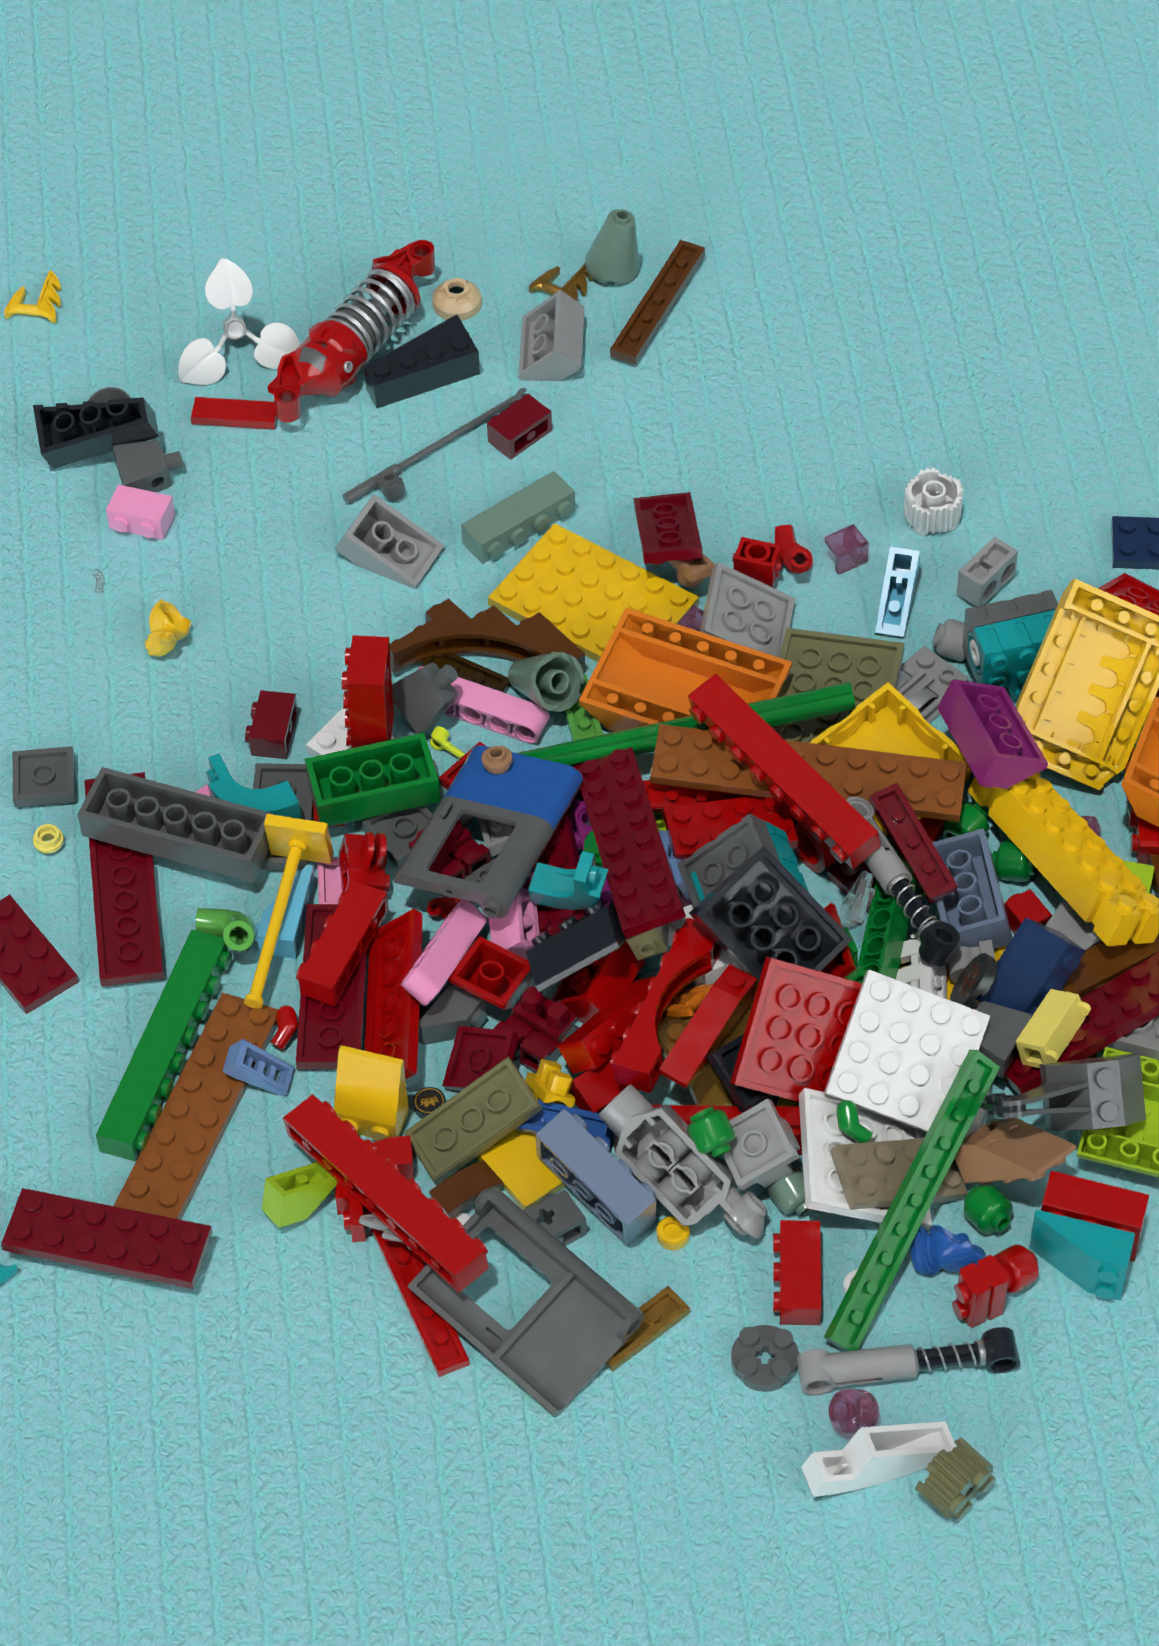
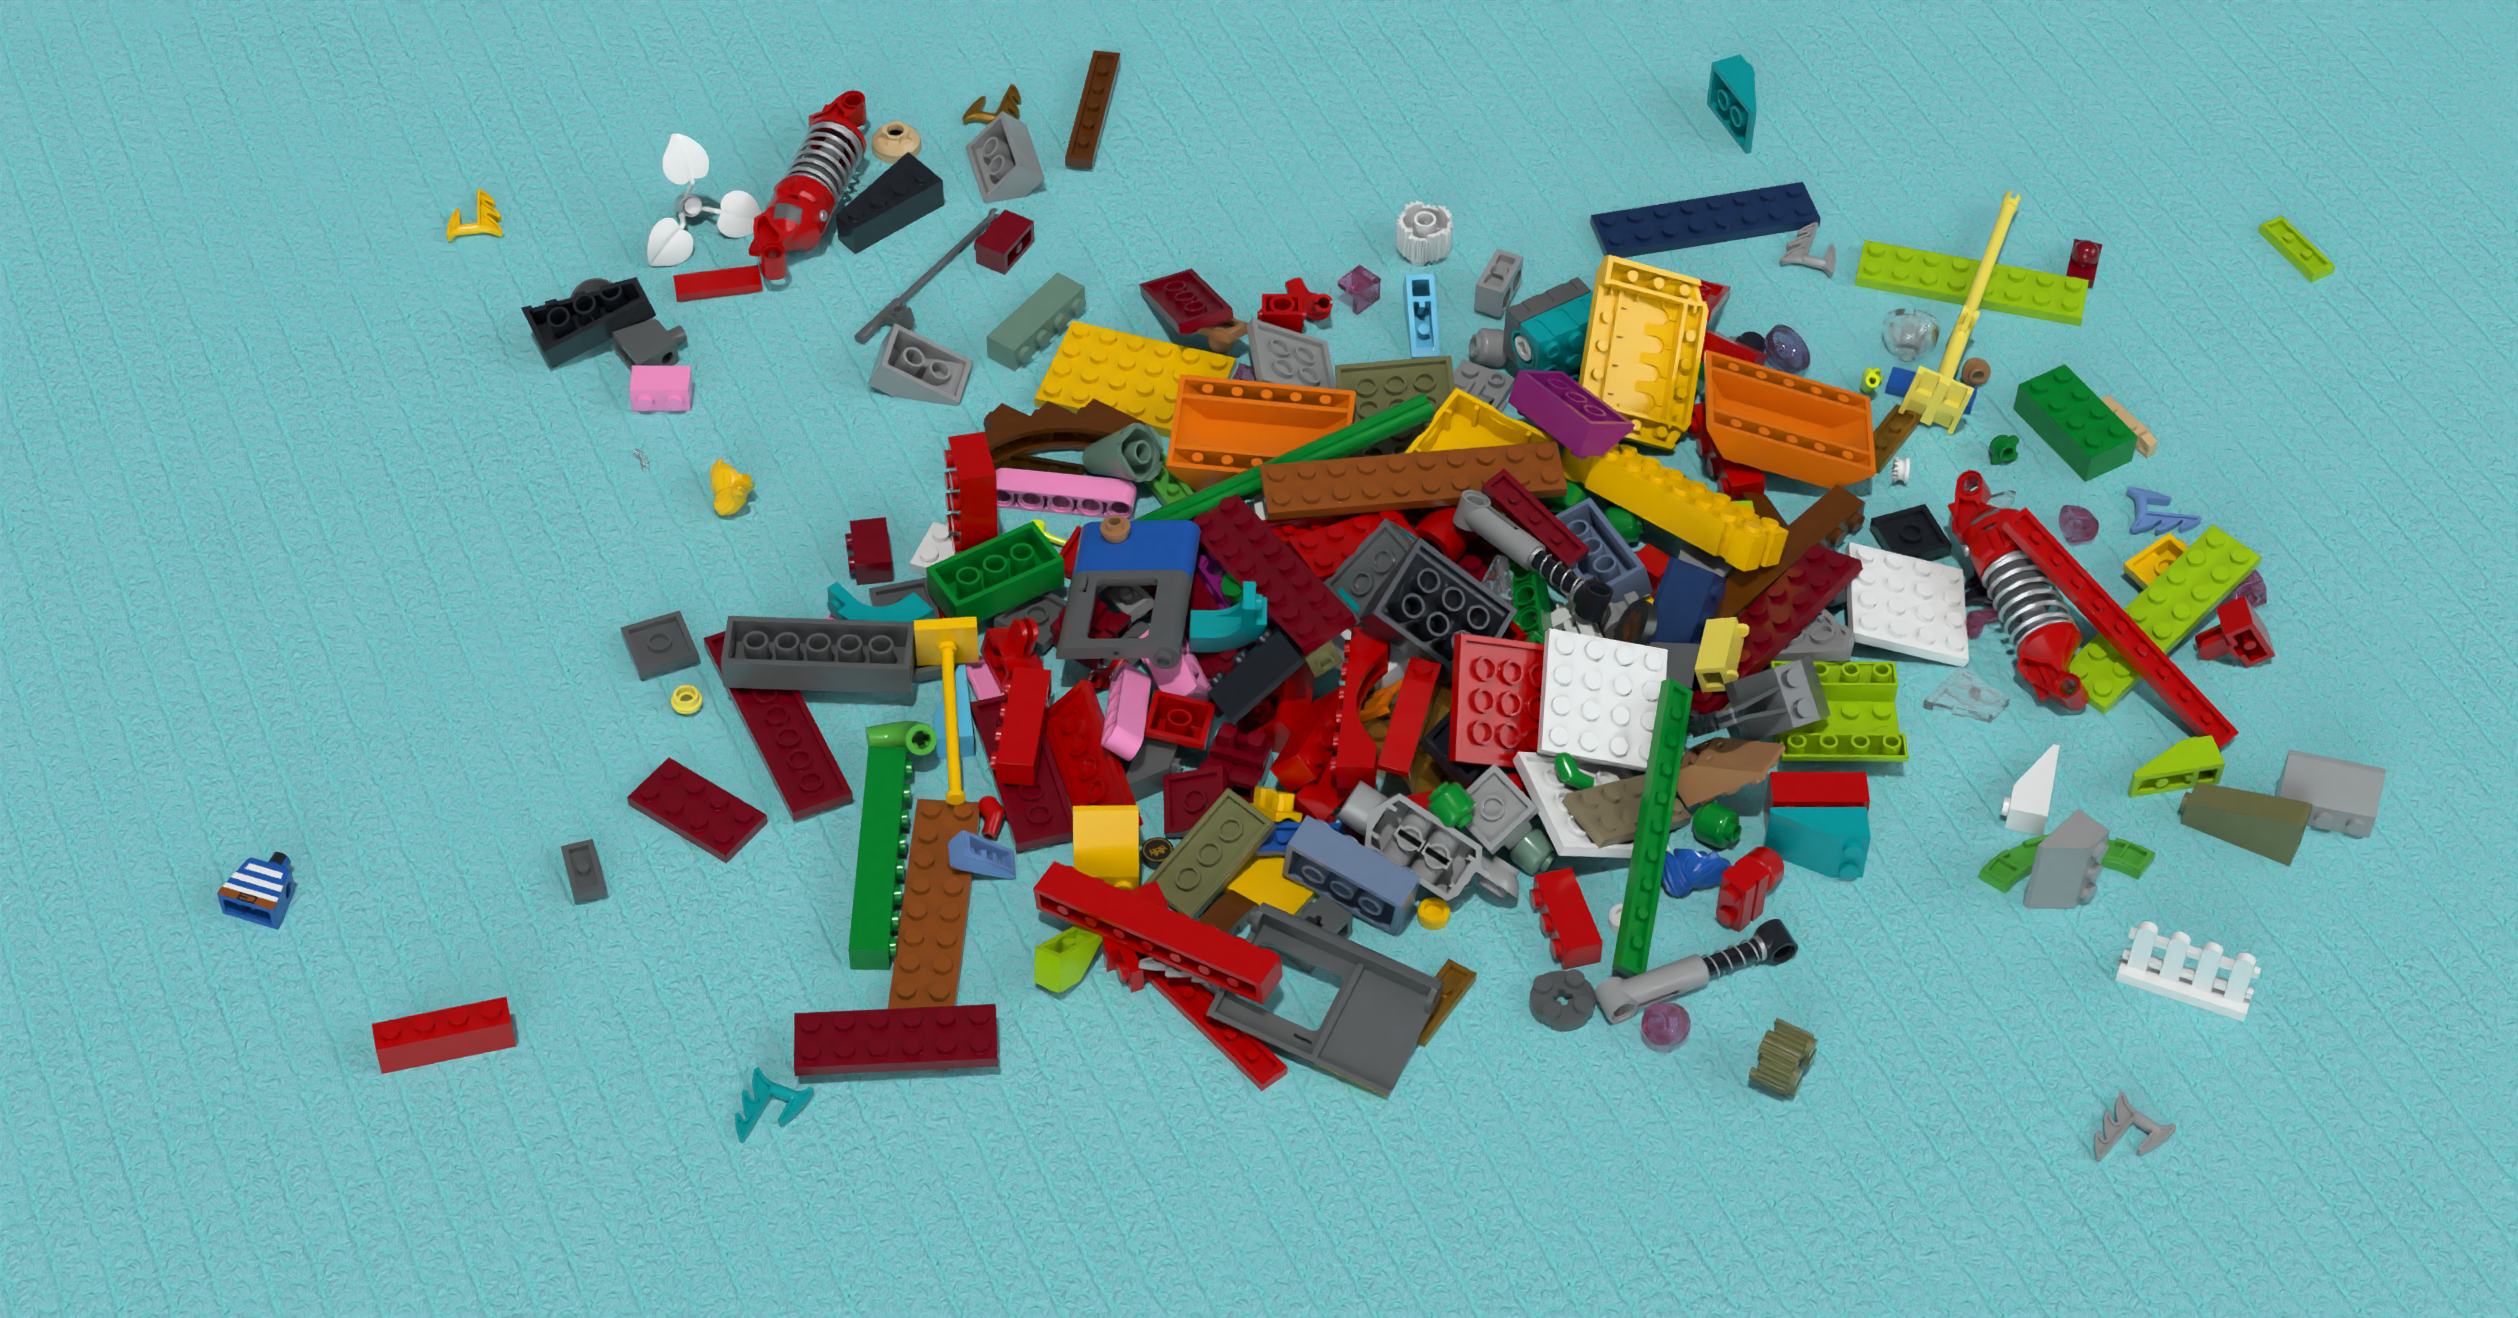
camera: 20 degrees left, 5 degrees down
(425, 695) = (1019, 490): dark grey torso -> none
(614, 250) = (1037, 67): sand green cone -> none
(784, 771) = (1397, 478): red brick -> none
(876, 1457) = (1701, 1058): white slope -> none

